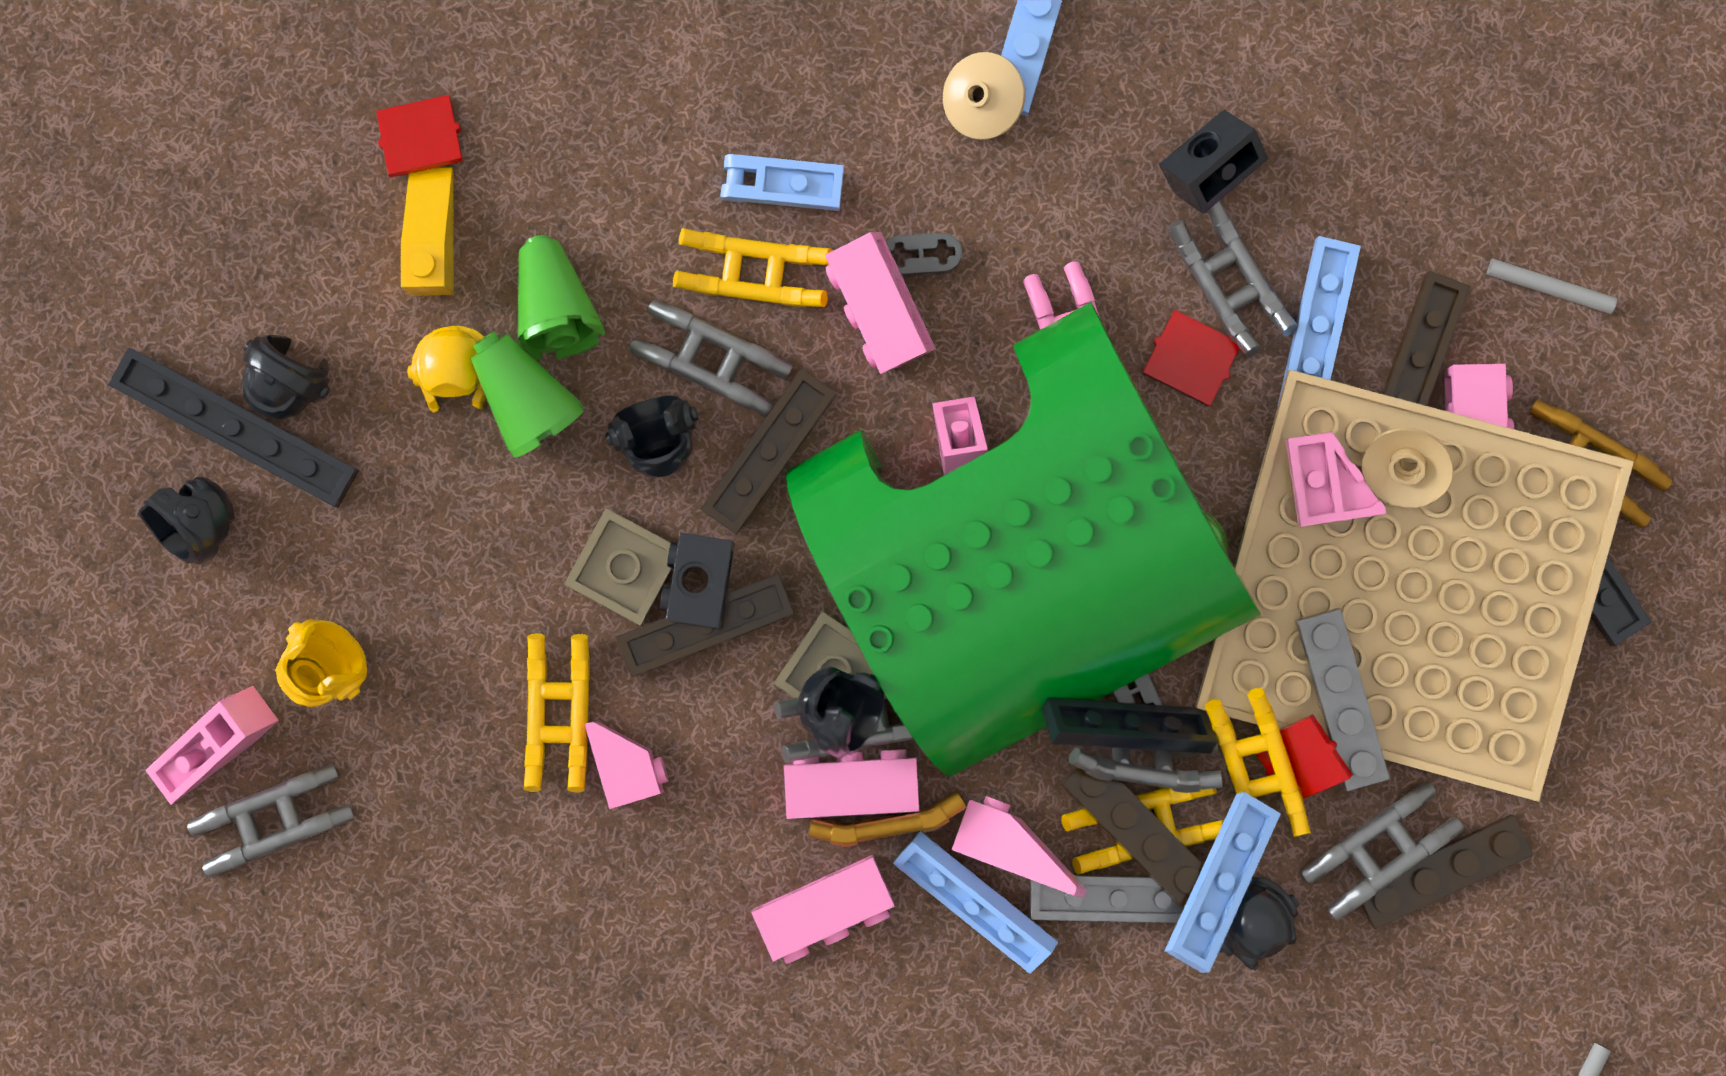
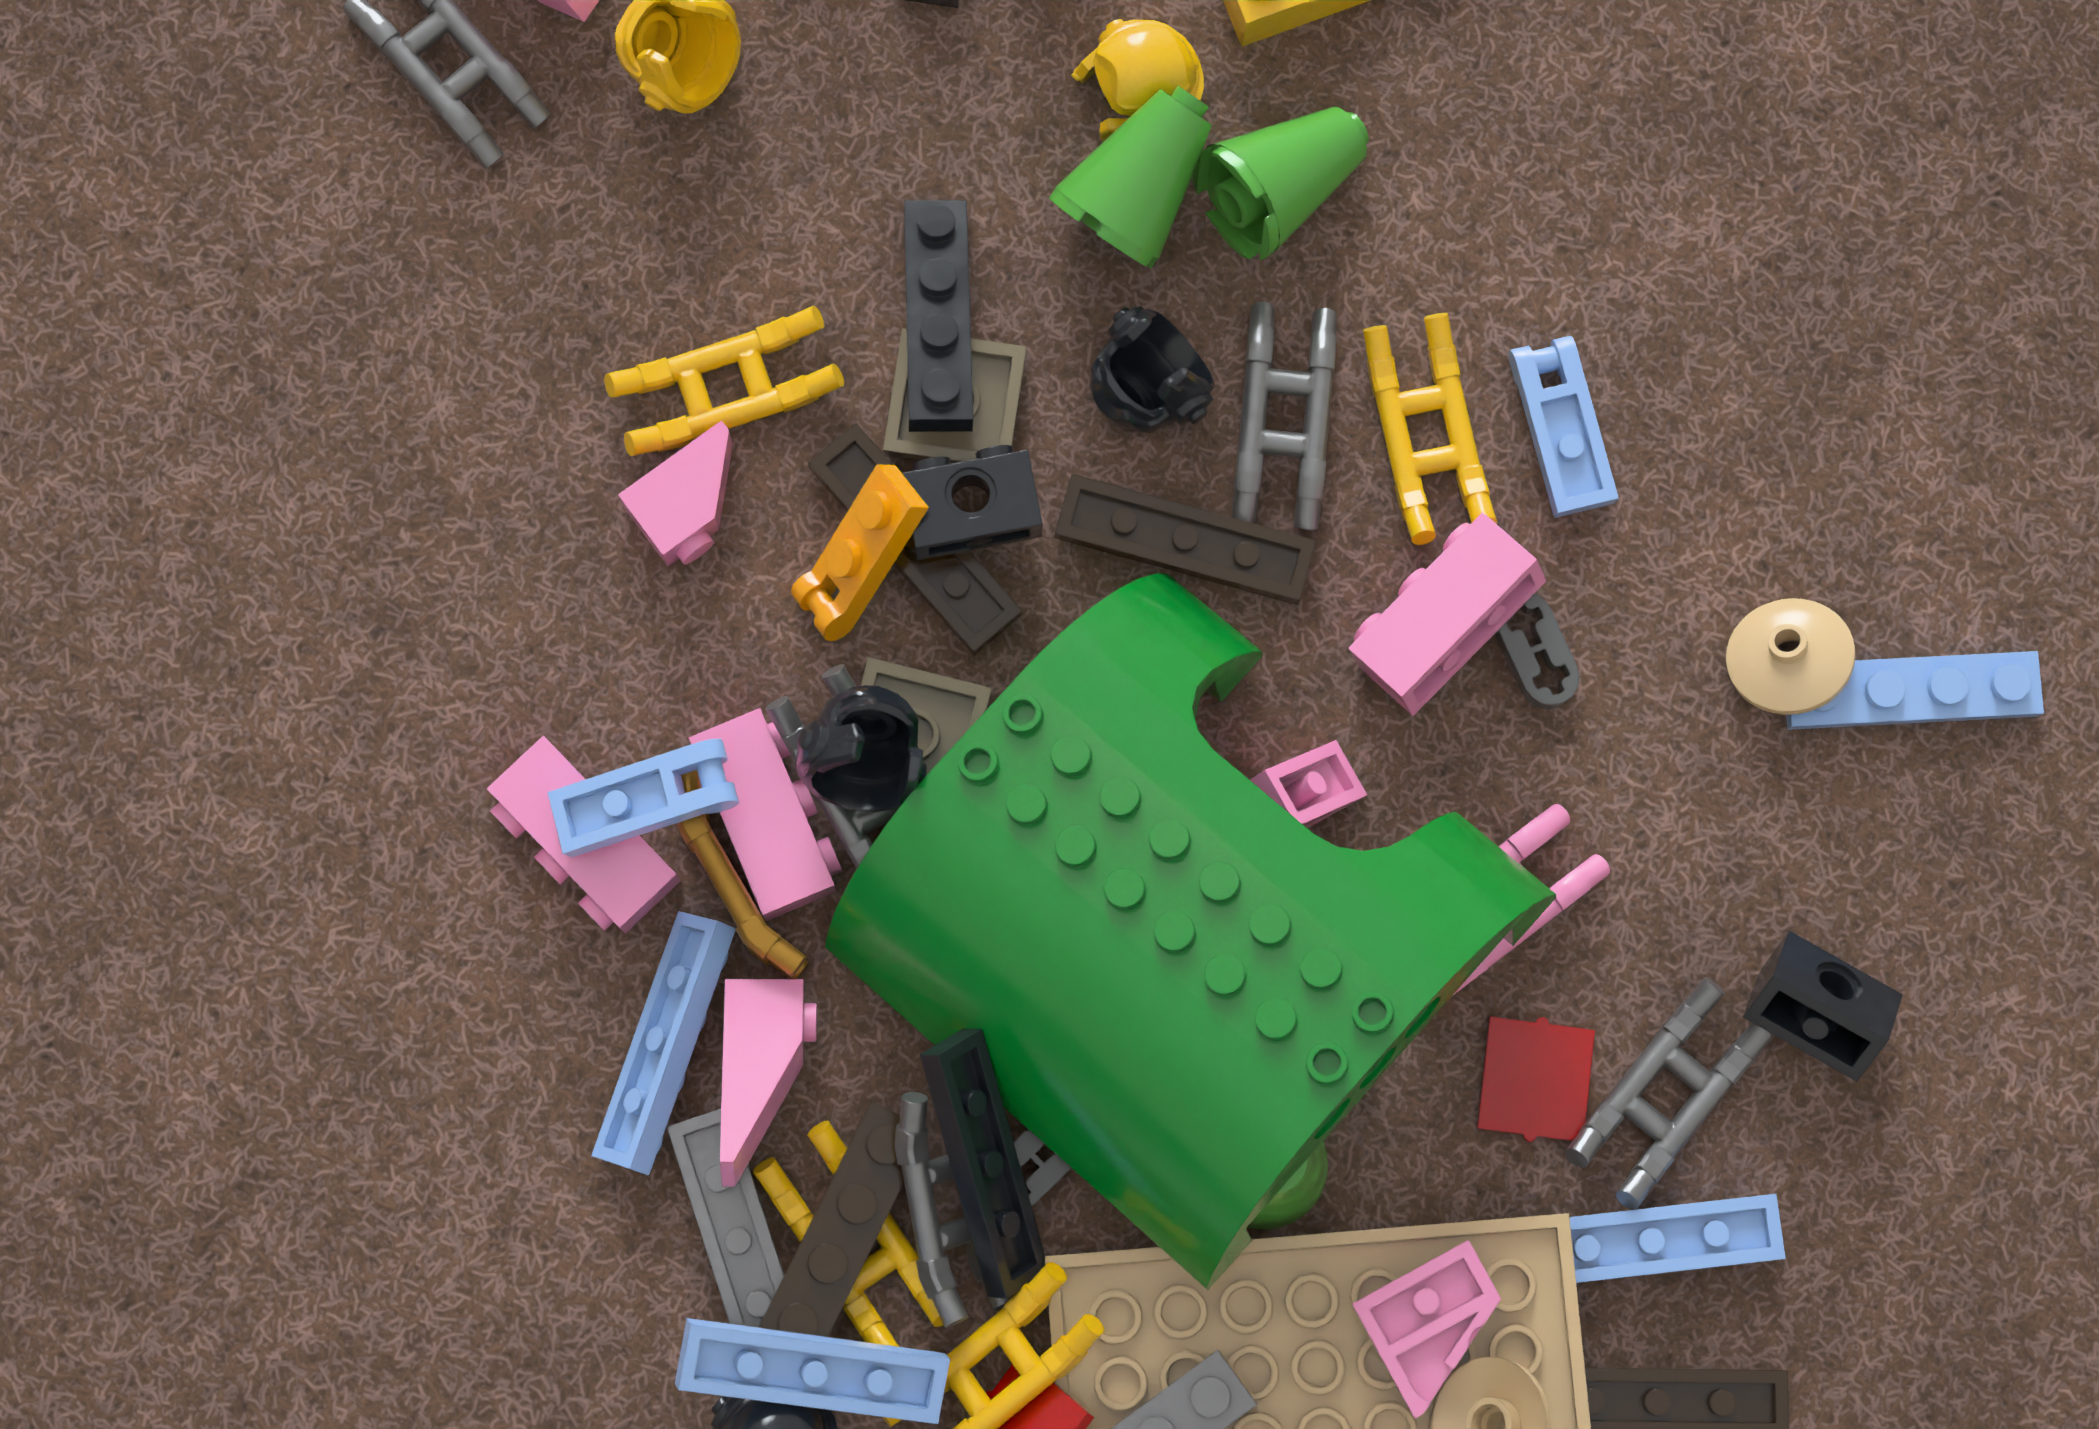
camera: 60 degrees right, 5 degrees down
(565, 558) = (938, 316): none -> black plate
(705, 664) = (860, 552): none -> light orange plate
(819, 864) = (641, 798): none -> light blue plate

